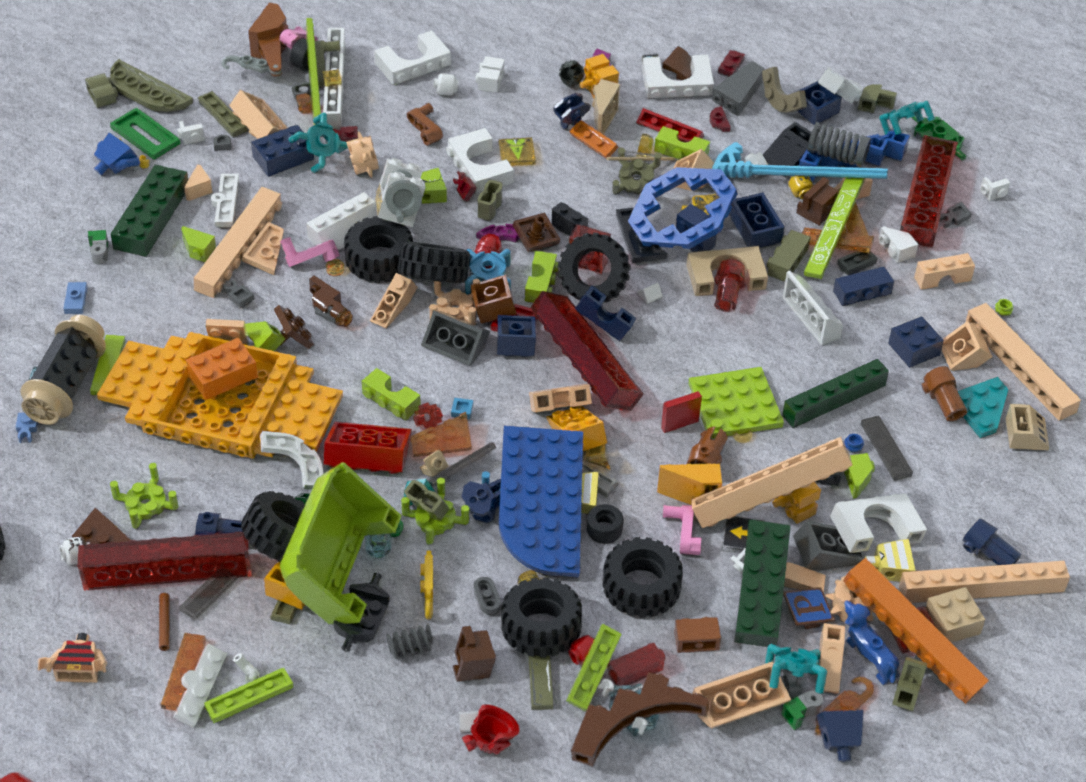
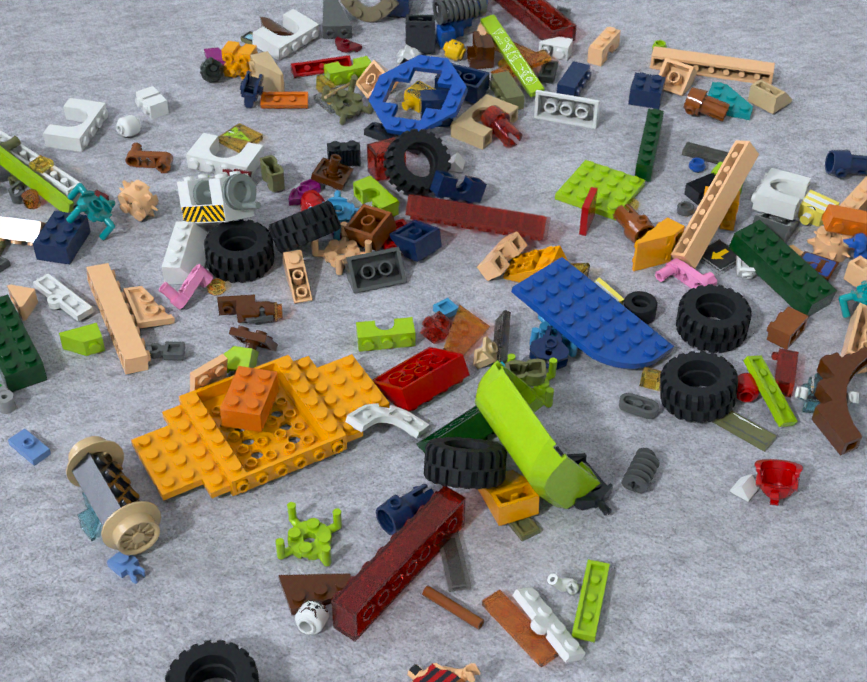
camera: 45 degrees left, 5 degrees down
(114, 347) = (139, 478): lime tile -> none
(426, 585) = (594, 428): yellow plate -> none
(474, 655) = (693, 443): reddish brown plate -> none
(731, 63) = (305, 9): dark red plate -> none
(747, 169) = (390, 62): medium azure piece -> none

